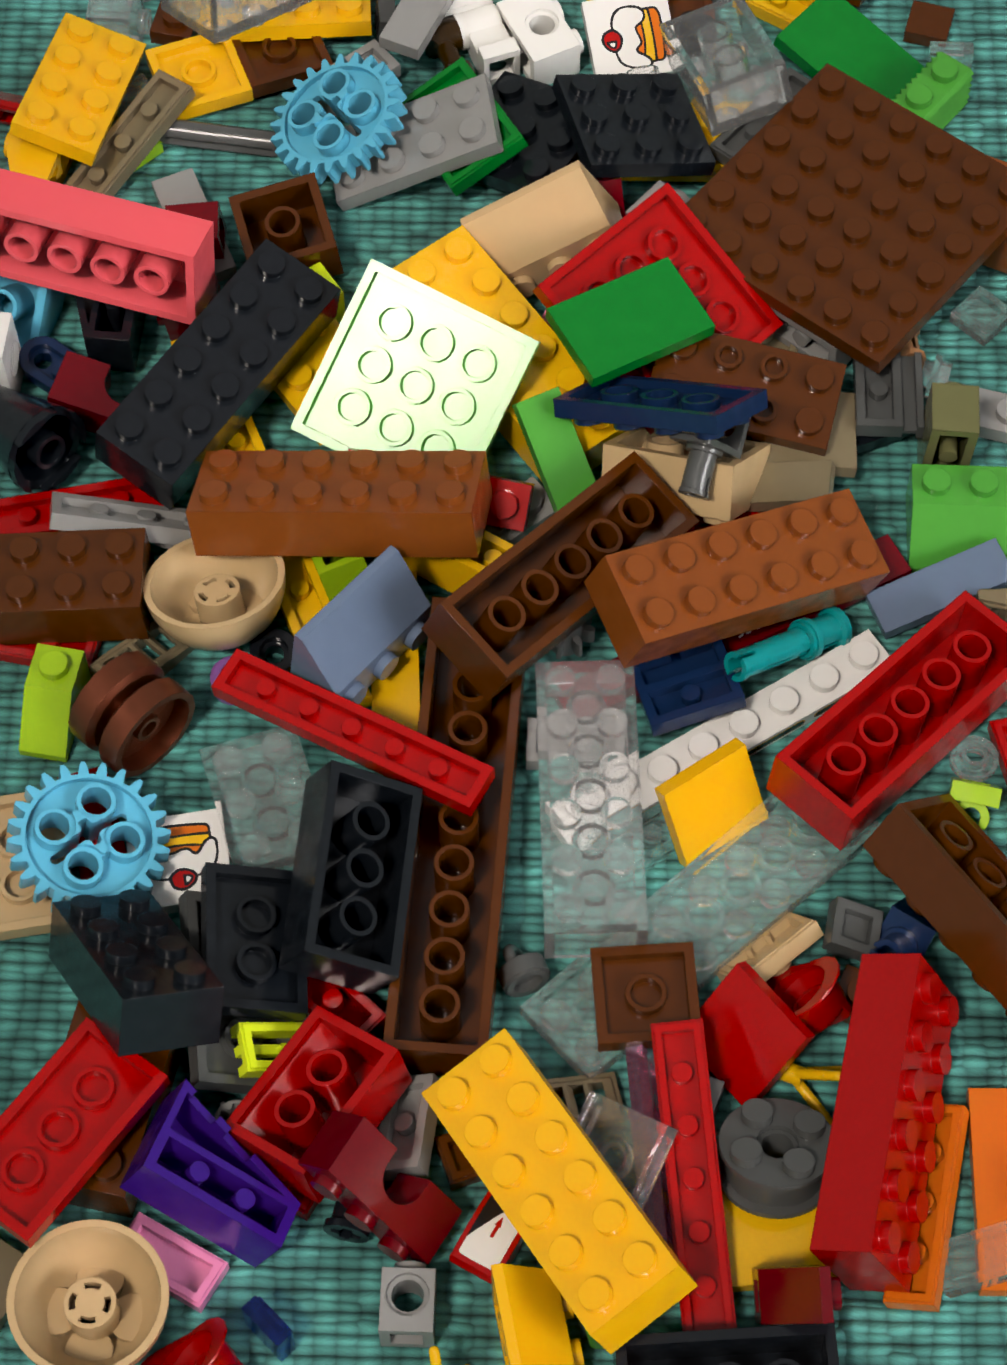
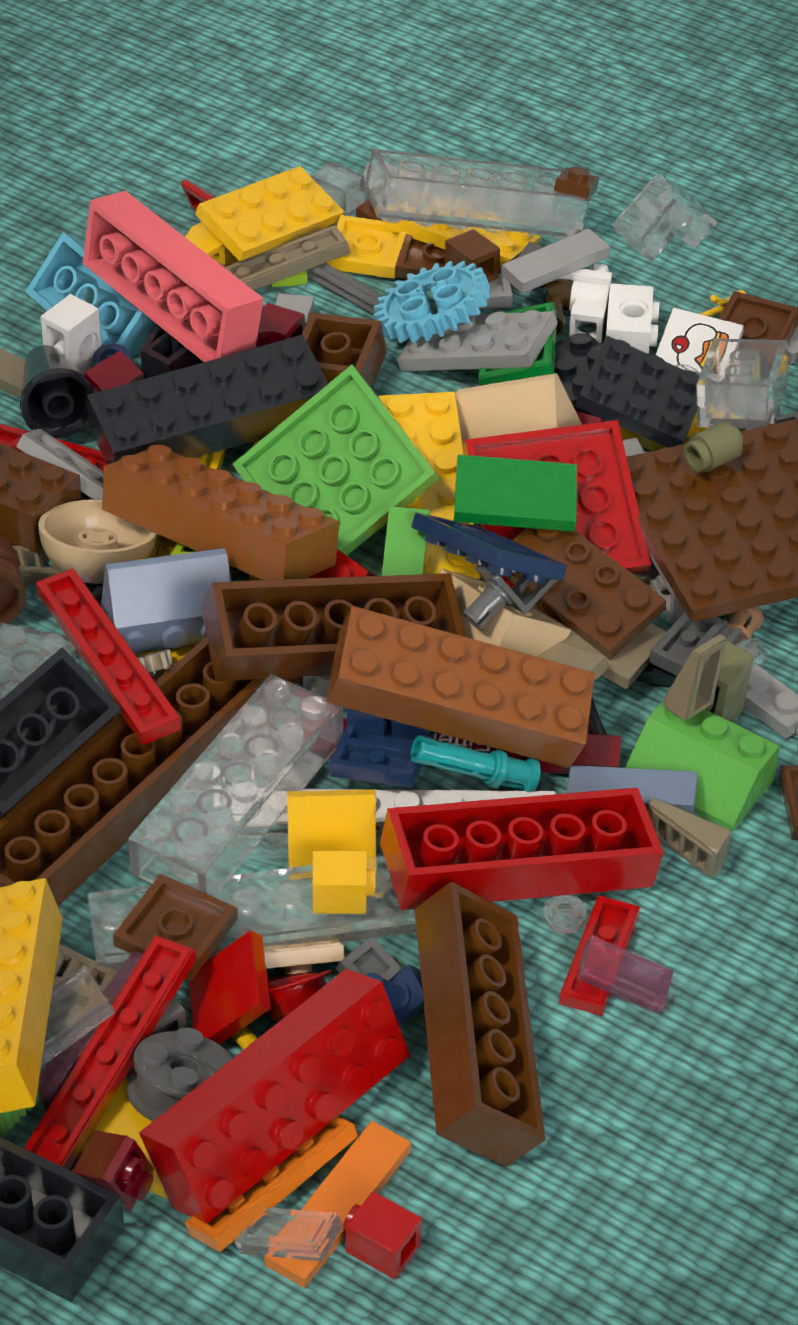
camera: 30 degrees right, 15 degrees down
(334, 34) = (475, 249): none -> reddish brown brick
(392, 702) = (156, 662): none -> dark tan plate
(522, 972) = (108, 873): dark grey tile -> none
(765, 854) = (341, 882): none -> yellow brick
(772, 163) = (713, 447): none -> olive brick
(948, 451) = (697, 680): none -> dark tan slope
(976, 796) = (542, 935): lime tile -> none

